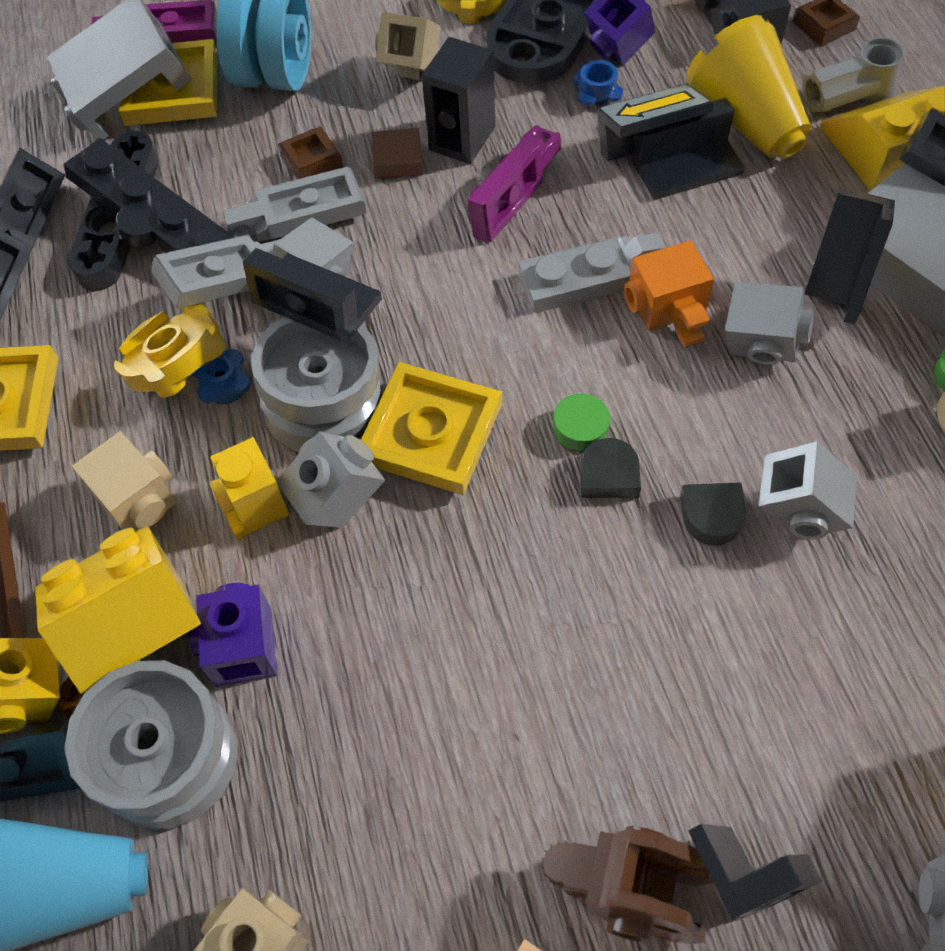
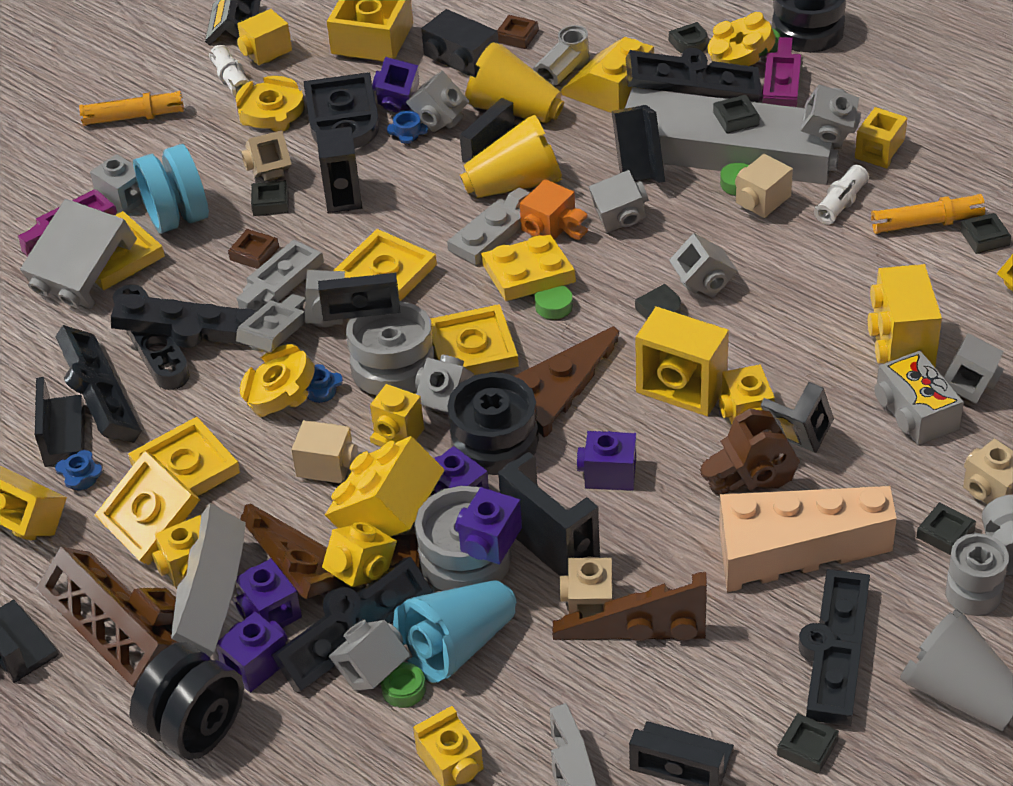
camera: 35 degrees left, 15 degrees down
(131, 787) = (489, 525): none -> dark purple brick
(254, 837) = (546, 525): none -> black panel
(344, 573) = (493, 419): none -> black wheel
(381, 99) = (269, 198): none -> pearl dark grey tile
(396, 153) = (311, 221): reddish brown tile -> none
(419, 260) = (388, 254): none -> yellow plate
(448, 731) = (608, 460): none -> dark purple brick
(477, 549) = (565, 376): none -> reddish brown wing
(511, 183) = (404, 201): magenta hinge -> none
(584, 355) = (528, 267): none -> yellow plate
(610, 470) = (590, 314): pearl dark grey tile -> none
(624, 119) = (458, 128): panel -> none
(650, 64) = (438, 102): none -> light grey brick
(658, 638) = (681, 360): none -> yellow brick
(676, 194) = (513, 161): none -> yellow cone
(713, 758) = (737, 395): none -> yellow brick

